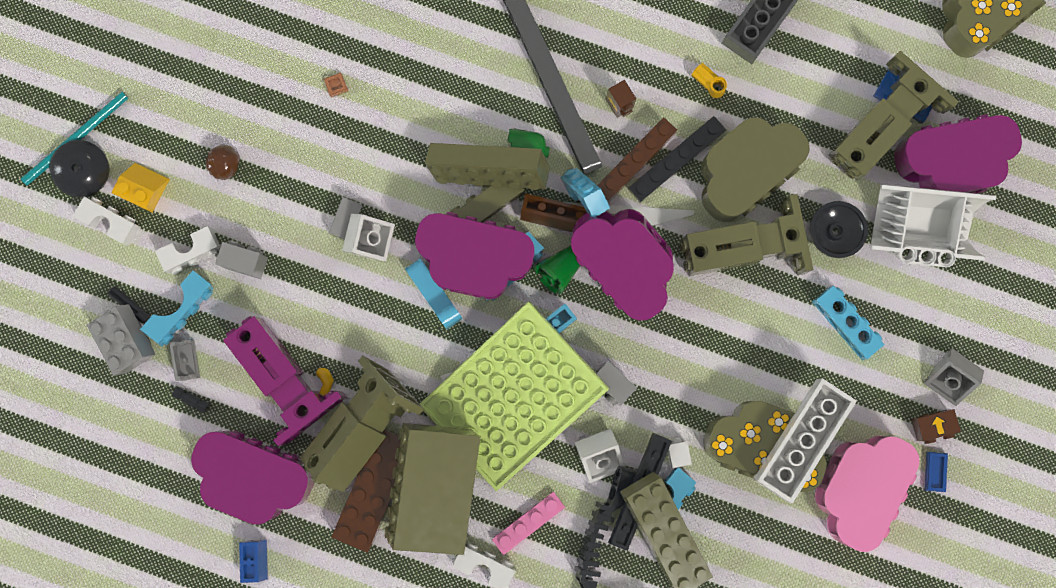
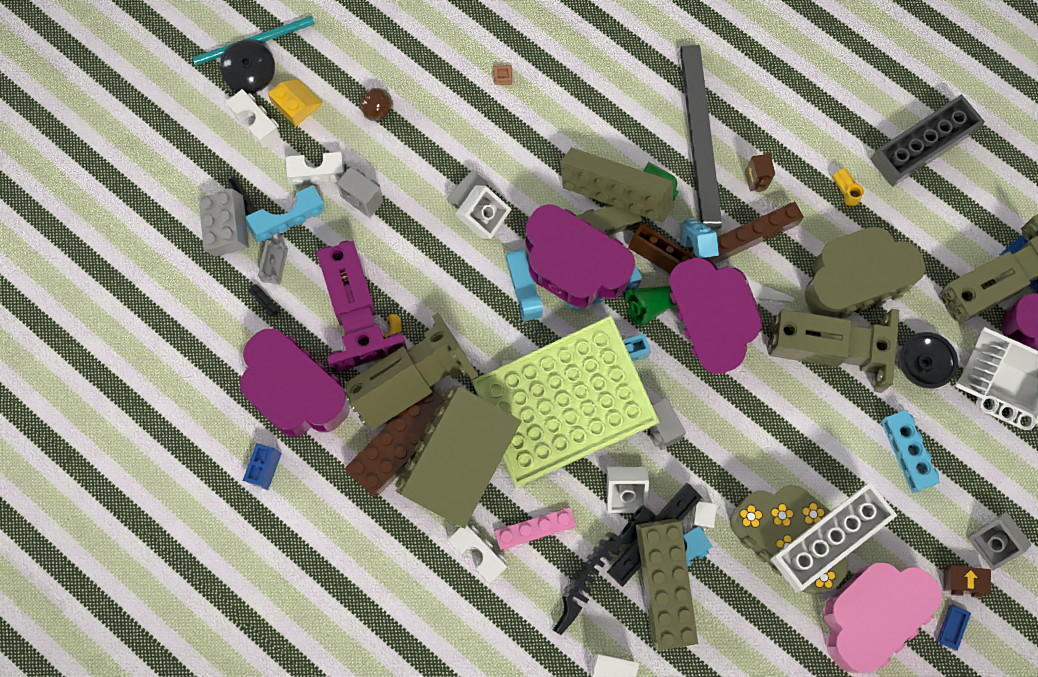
camera: 20 degrees right, 10 degrees down
(677, 159) = (792, 246): black plate -> none

